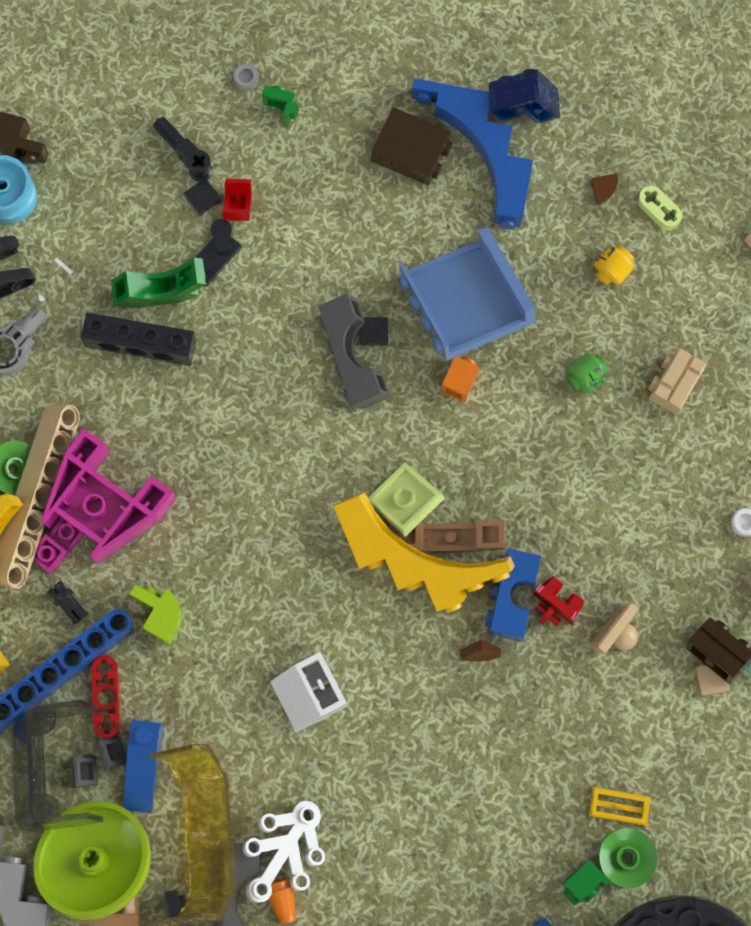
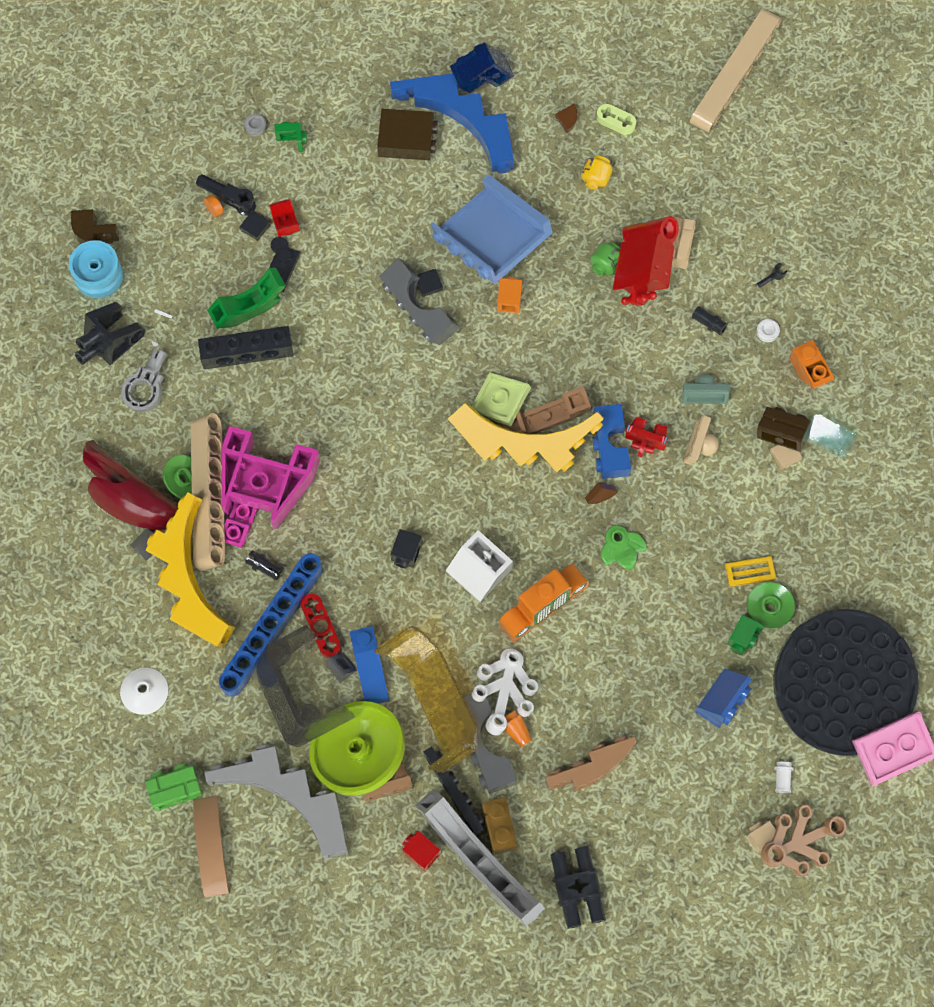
camera: 15 degrees left, 5 degrees down
(84, 771) = (323, 687): dark grey slope -> none
(163, 158) = (213, 205): none -> orange tile
(166, 612) = (344, 544): lime brick -> none
(233, 641) = (406, 549): none -> black brick
(366, 760) = (542, 601): none -> orange brick
(481, 729) = (623, 551): none -> bright green plate
(631, 391) = (645, 259): none -> red piece
(645, 571) = (705, 391): none -> sand green tile
(682, 490) = (713, 322): none -> black pin

